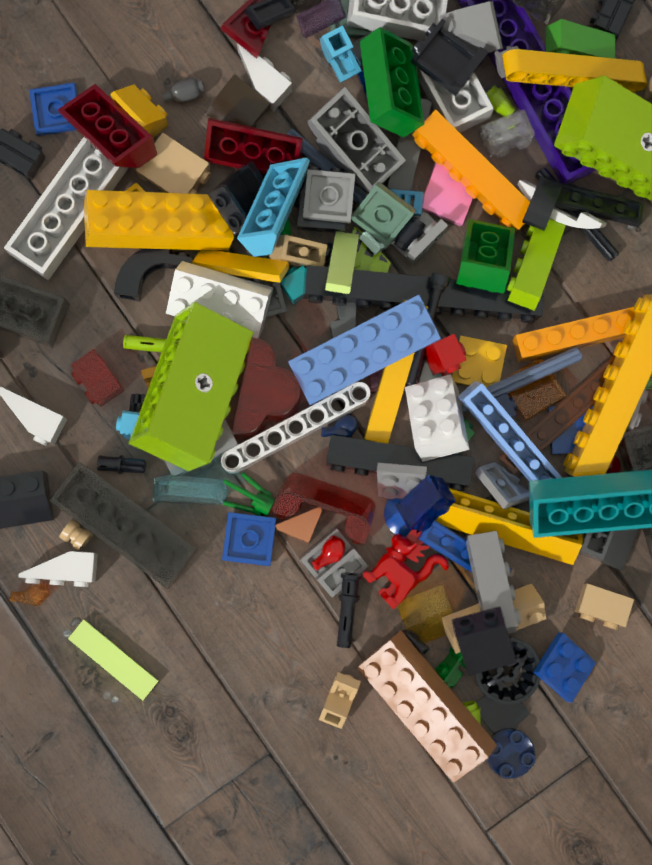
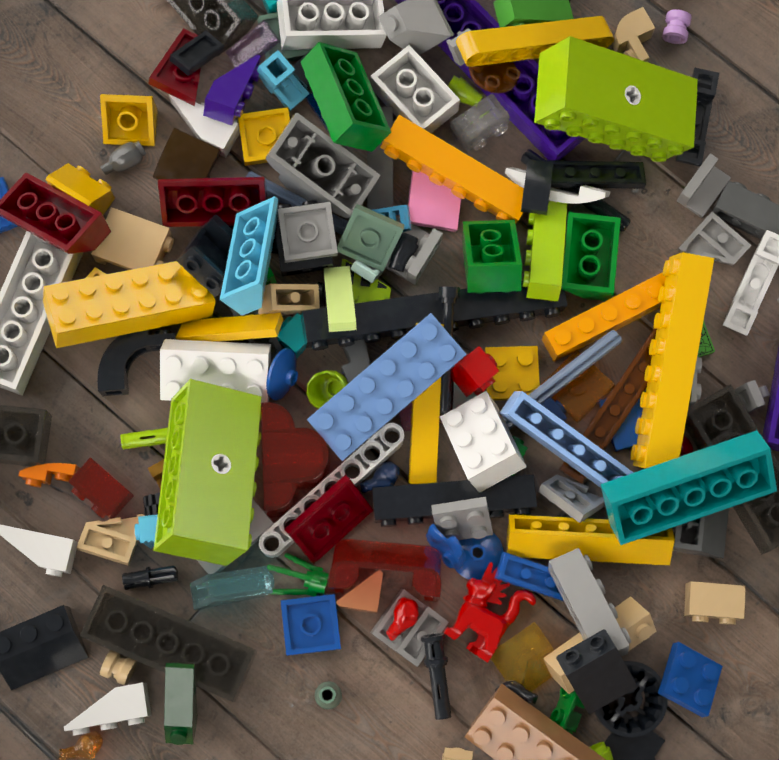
camera: 15 degrees left, 5 degrees down
(50, 353) = (43, 473): none -> orange slope
(95, 423) = (110, 539): none -> tan wing
(121, 579) = (180, 703): none -> slope
(196, 57) = (128, 119): none -> yellow slope
(257, 603) = (336, 699): none -> sand green cone
(276, 316) = (282, 374): none -> blue dish
(286, 452) = (329, 519): none -> dark red tile
(291, 52) = (230, 90): none -> dark purple slope
(309, 96) = (260, 132): none -> yellow plate
(310, 336) = (324, 386): none -> lime hair
(385, 504) = (449, 548): none -> blue plate
(425, 503) = (494, 537): clear blue brick -> none
(446, 58) = (397, 58): black panel -> none
(530, 96) = (495, 77): none -> reddish brown dish
(574, 276) = (590, 255): none -> green slope

